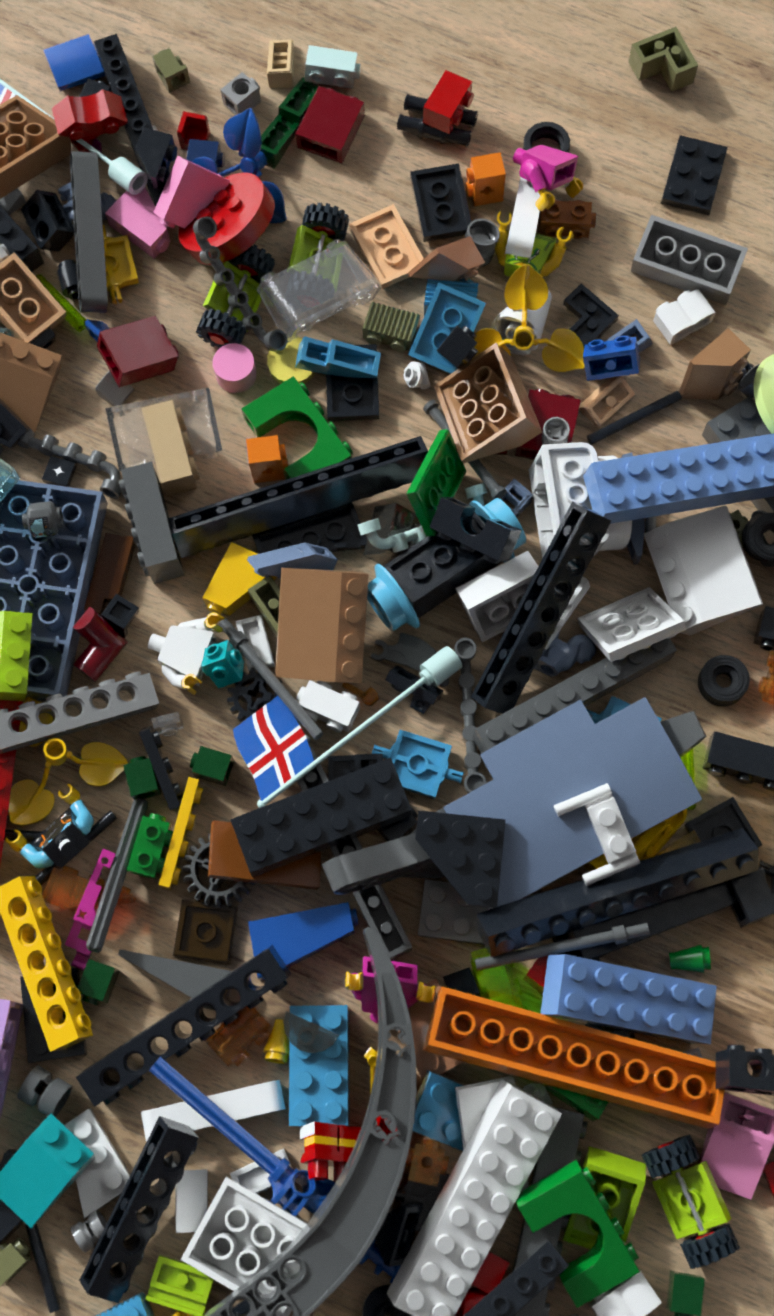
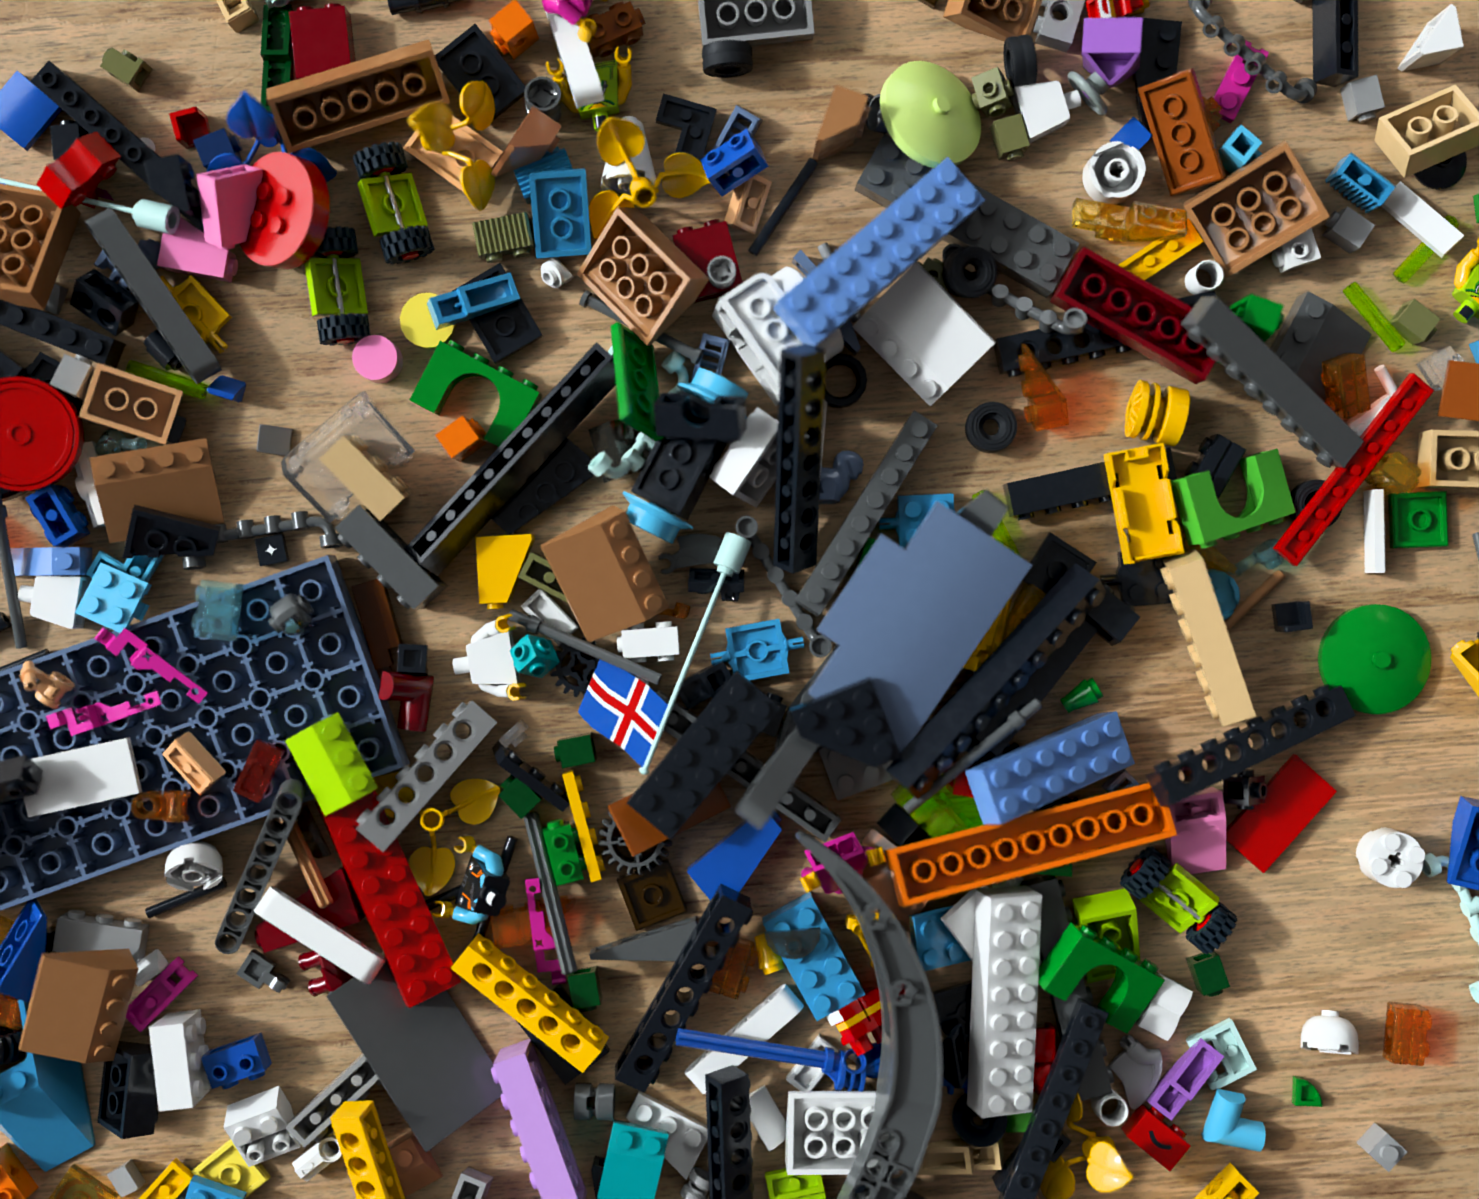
camera: 30 degrees left, 15 degrees up
(137, 351) = (275, 392): dark red brick -> none
(204, 229) = (277, 249): dark grey bar -> none
(241, 85) = (222, 68): light grey brick -> none
(296, 556) = (548, 522): sand blue slope -> none
(317, 288) = (413, 238): clear windscreen -> none
(336, 167) = (356, 96): none -> medium nougat brick
(383, 202) = (436, 133): none -> yellow plant
(422, 1173) = (948, 988): clear orange brick -> none
(459, 346) = (584, 232): black brick -> none
(609, 829) = (964, 636): white plate -> none
(617, 558) = (858, 369): none -> black tyre
(631, 624) = (884, 422): white plate -> none
(647, 281) = (727, 58): none -> black tyre
(683, 316) = (778, 76): white brick -> none

